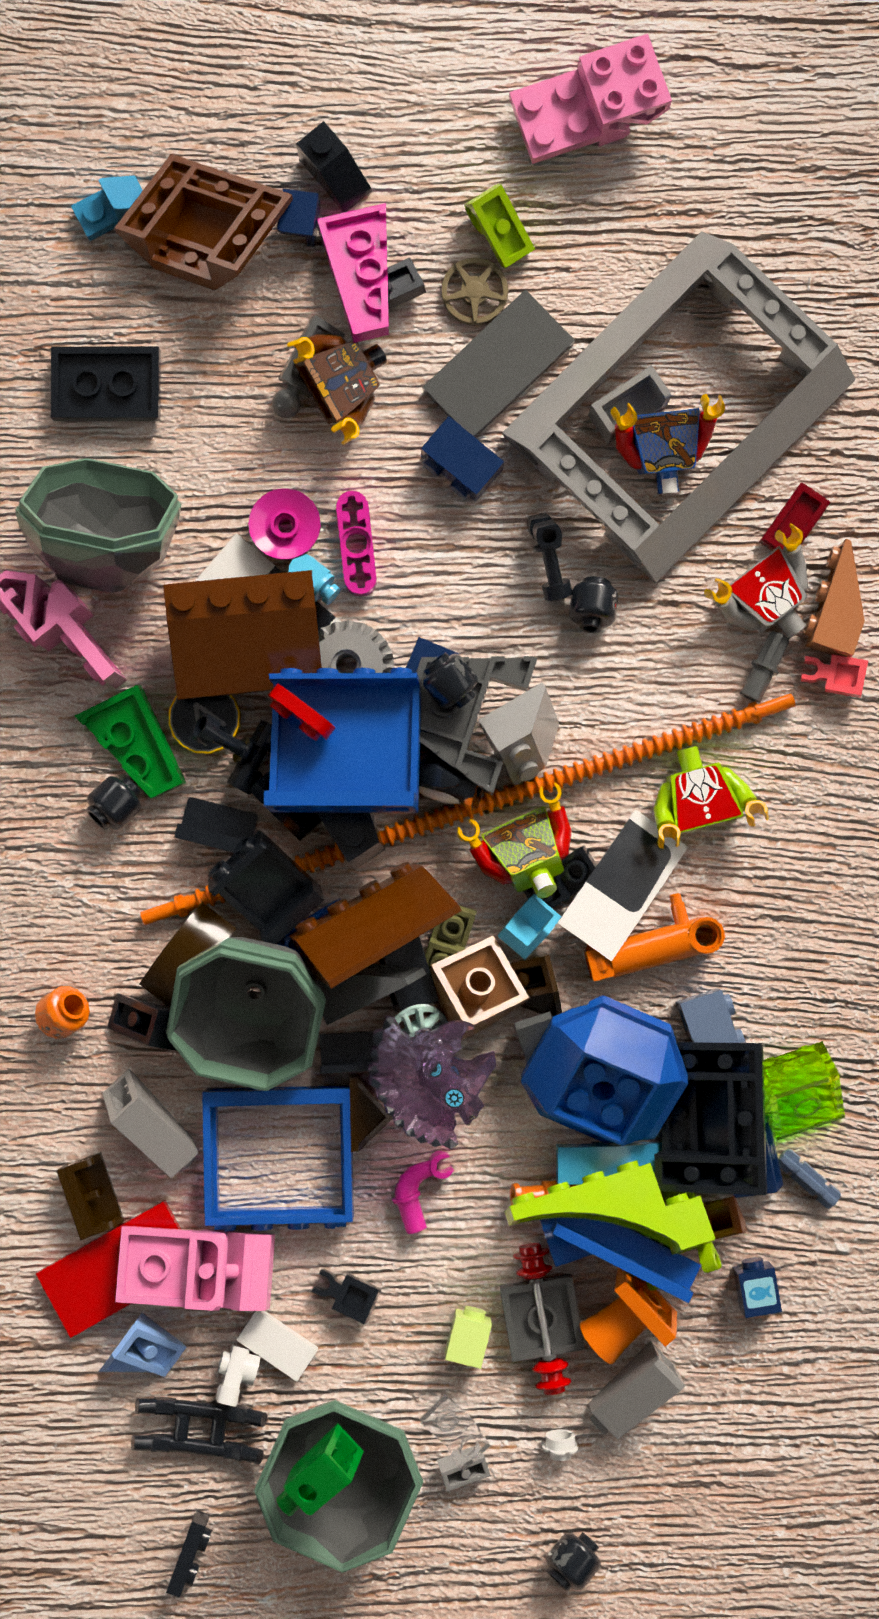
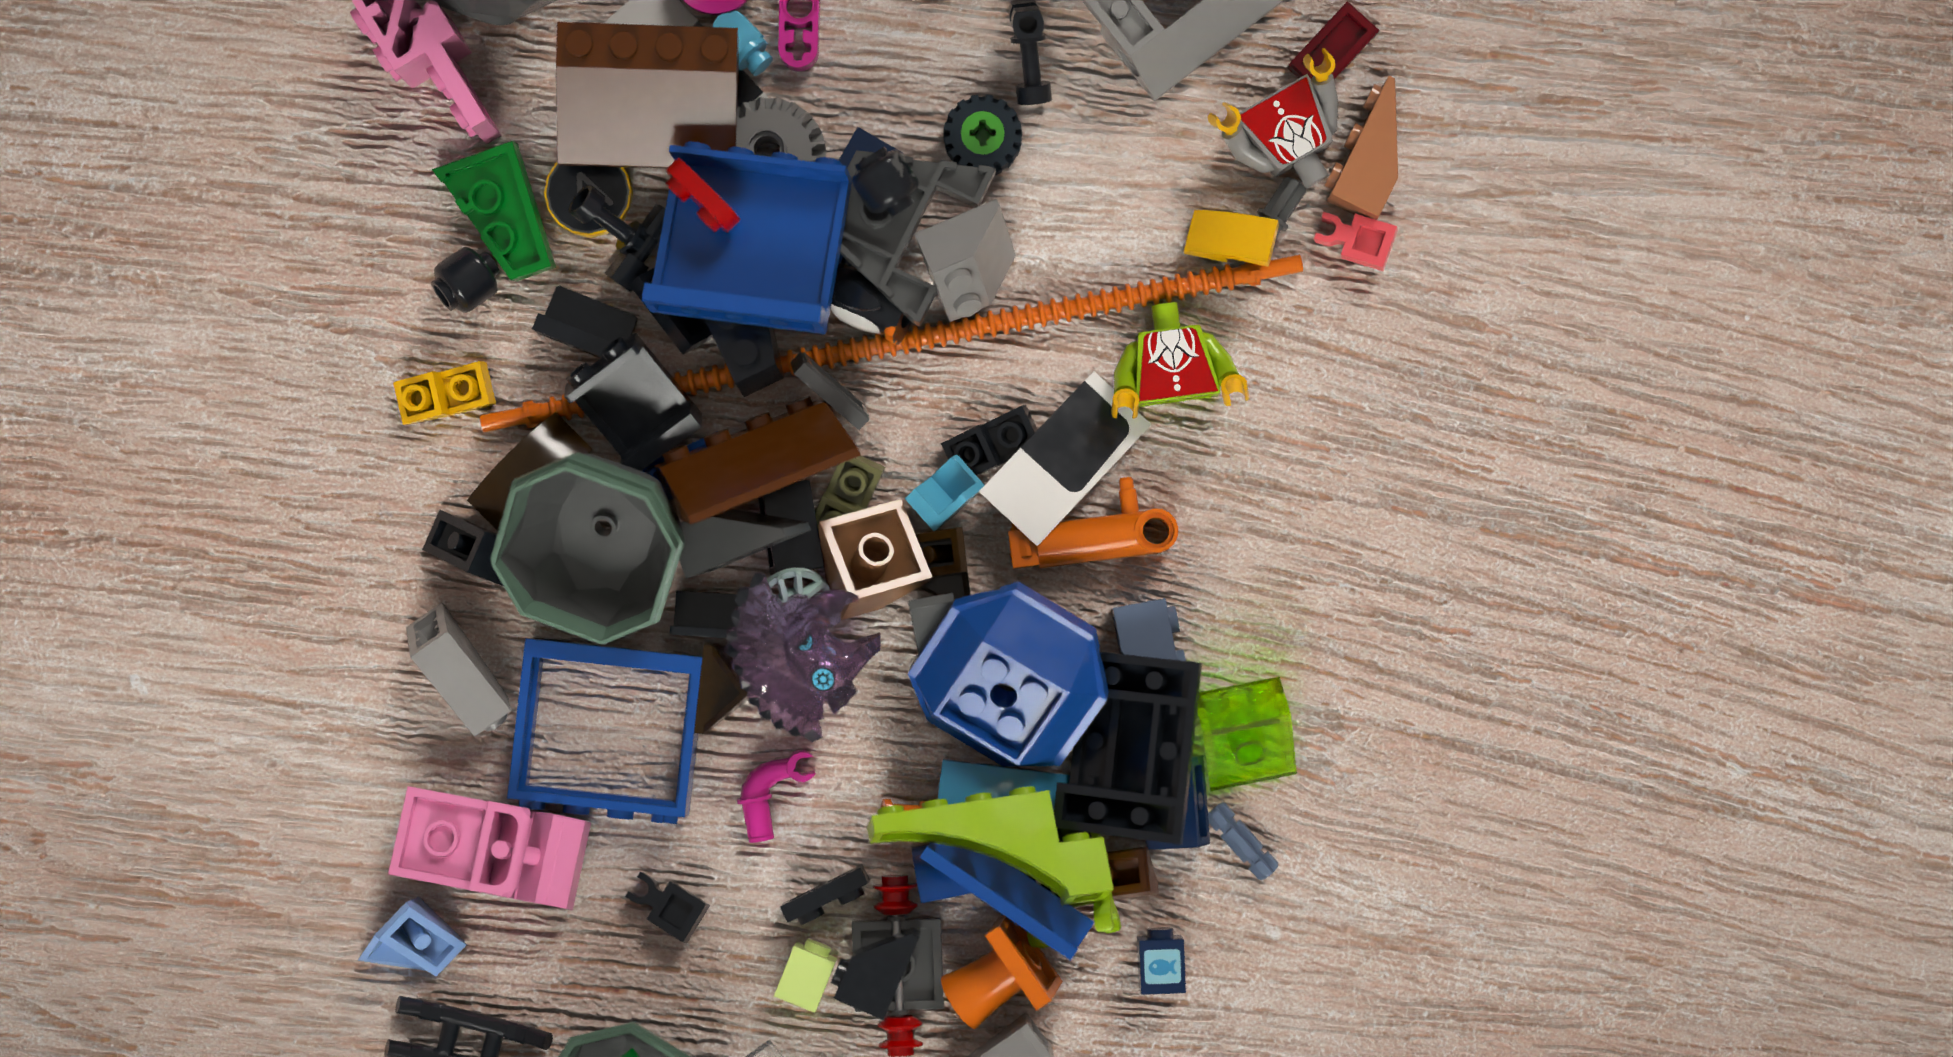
camera: 15 degrees right, 0 degrees up
(62, 1012) = (370, 522): orange head -> none
(85, 1280) = (356, 847): red tile -> none
(90, 1195) = (375, 746): dark brown hinge -> none
(108, 897) = (444, 393): none -> yellow slope
(237, 1368) = (524, 976): white plate -> none
(277, 1344) = (576, 954): white tile -> none
(424, 855) = (830, 390): none -> dark grey tile
(463, 1277) = (809, 904): none -> black plate
(520, 640) = (983, 148): none -> black wheel
(525, 849) = (953, 398): torso -> none
(526, 1329) = (875, 973): none -> black slope
(593, 604) = (1075, 116): black head -> none
(734, 686) = (1231, 236): none -> yellow slope

